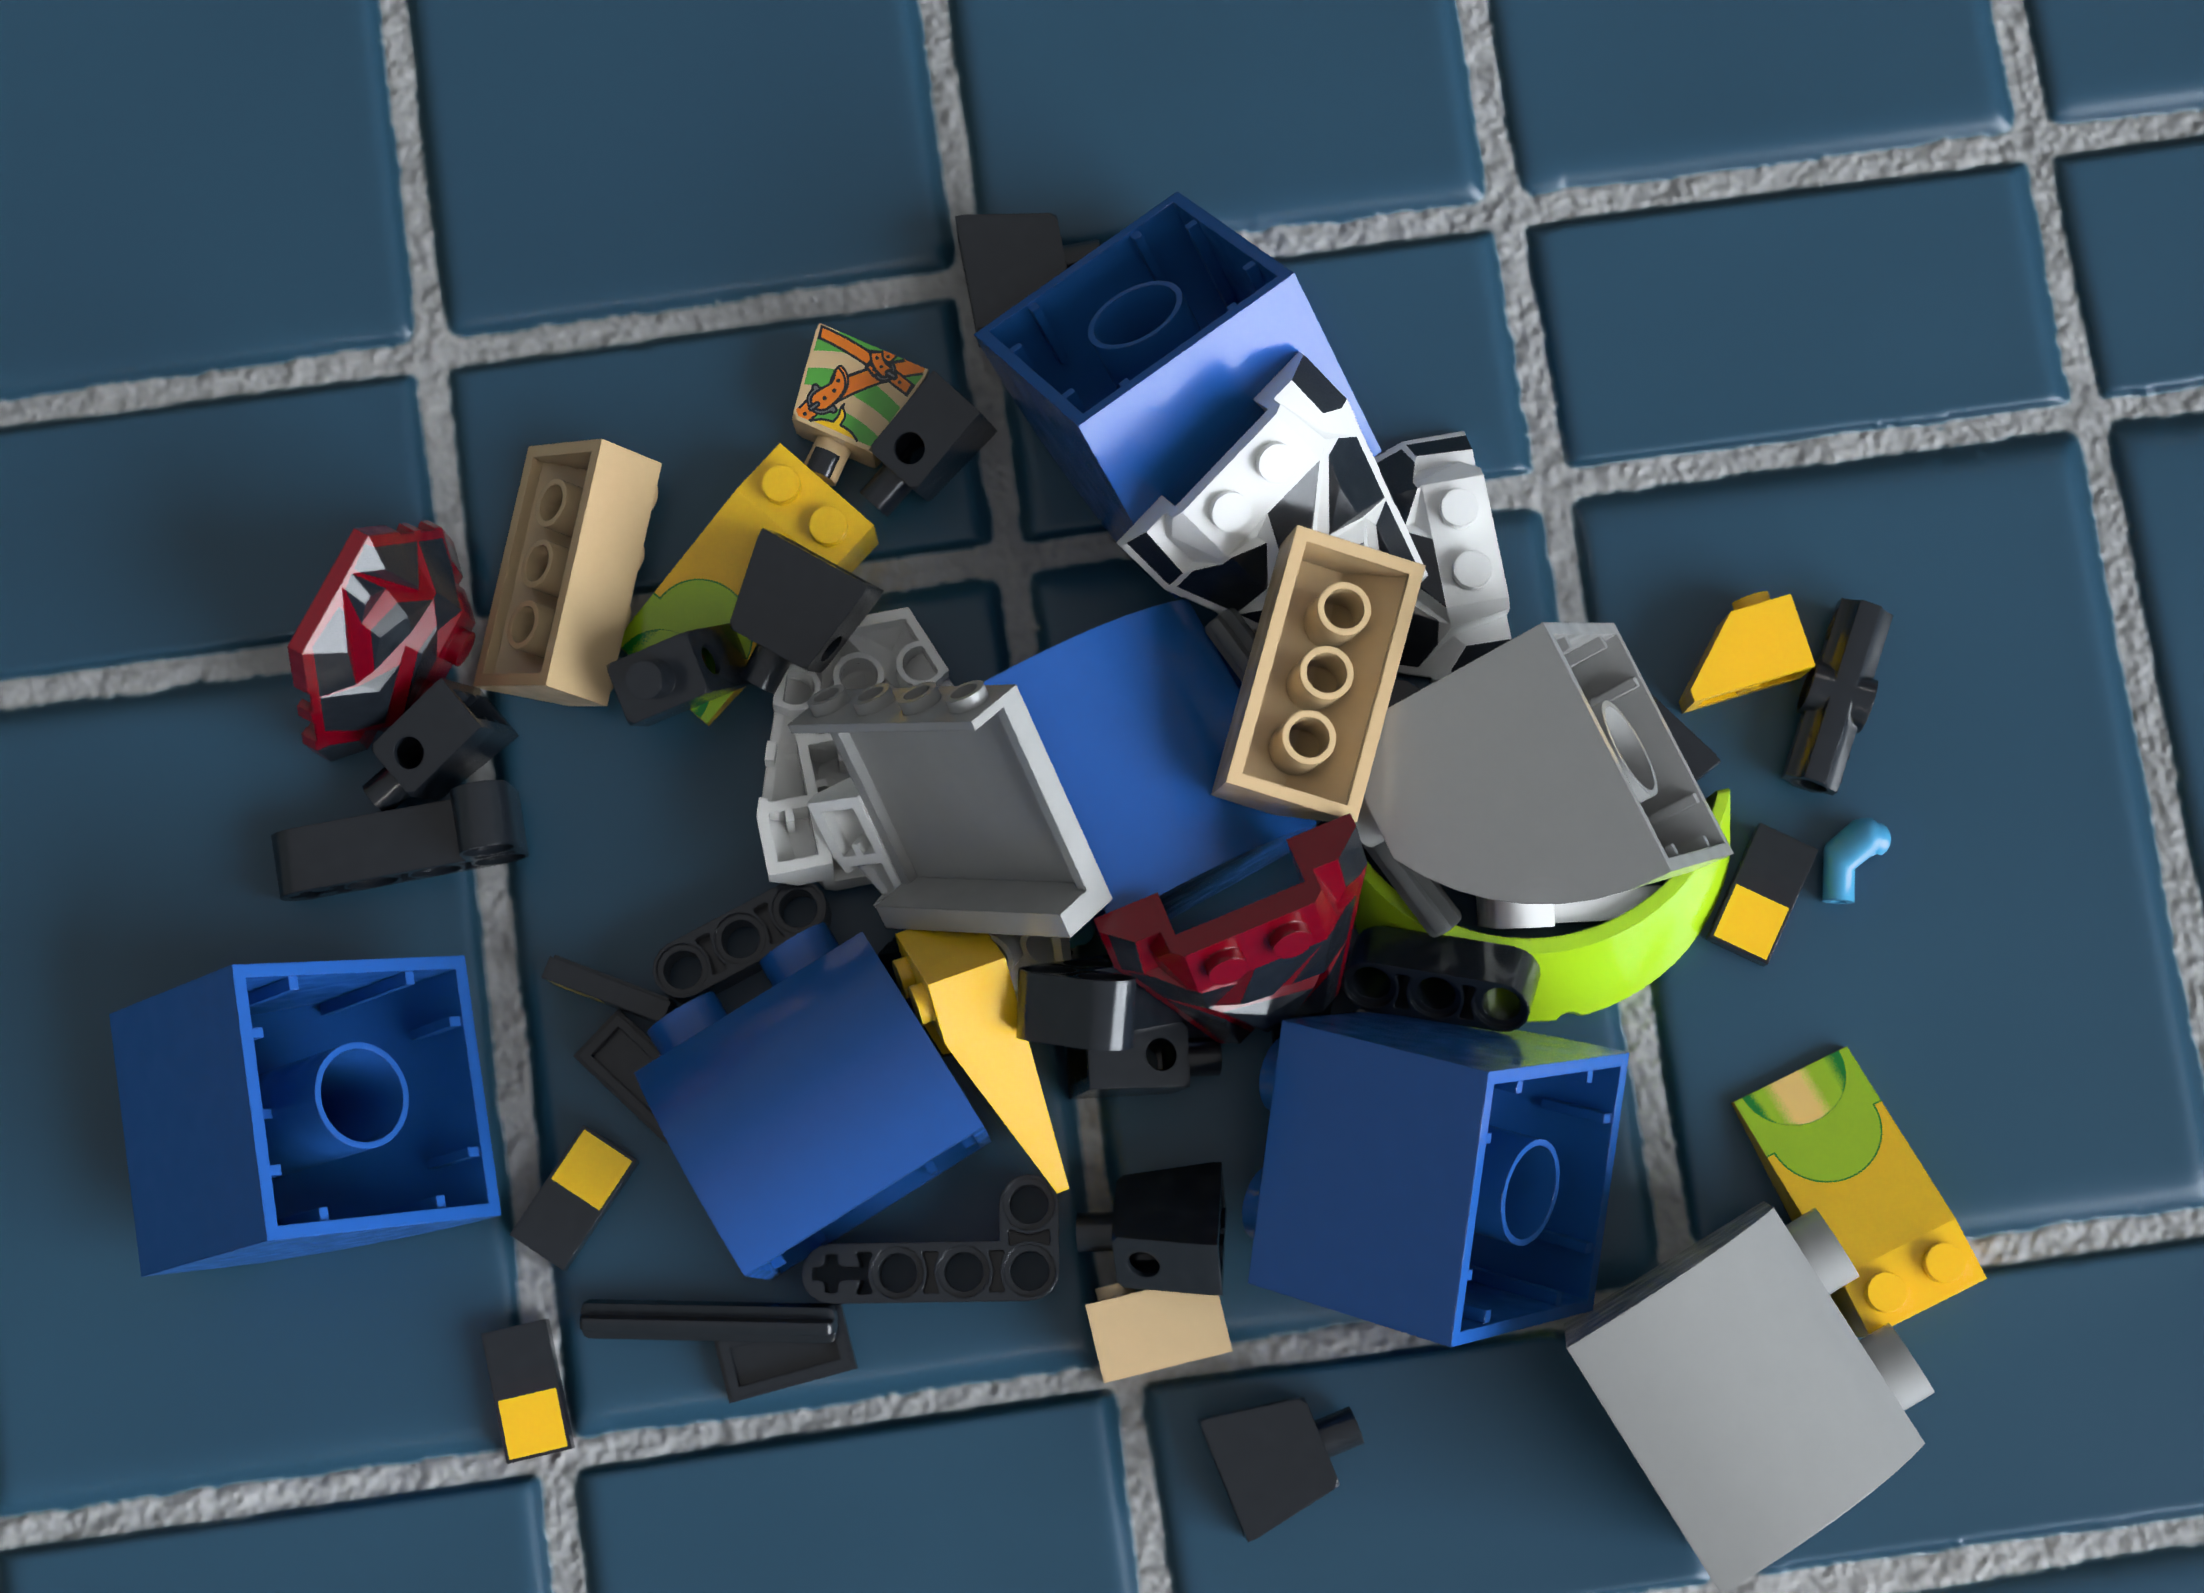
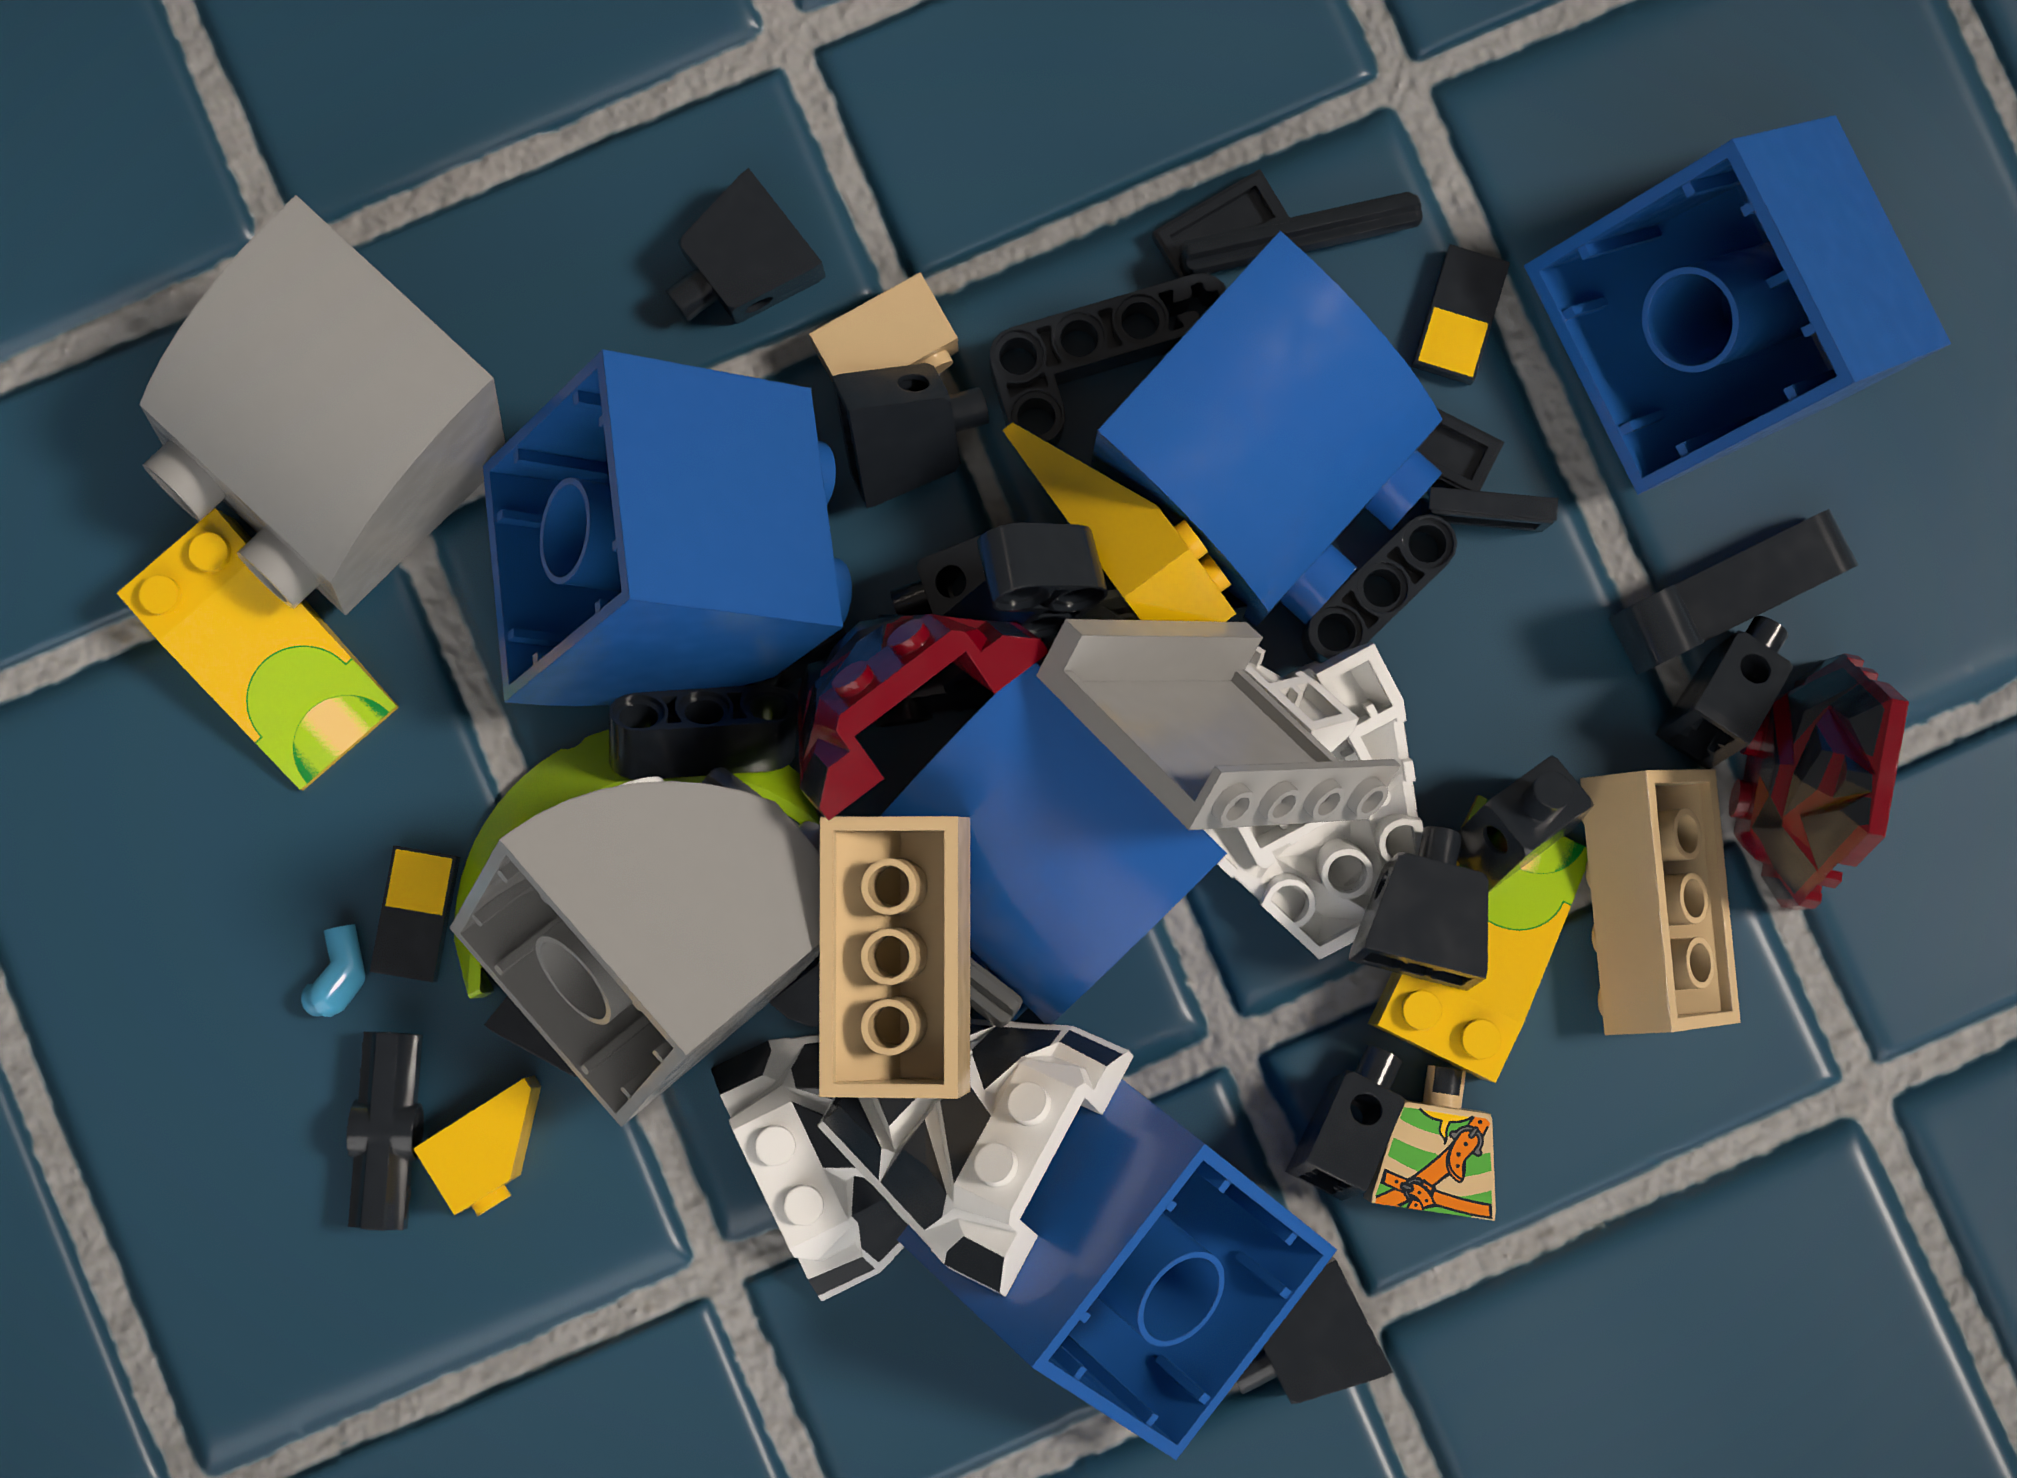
camera: 165 degrees right, 5 degrees up
(527, 1391) = (1447, 130): black tile -> none

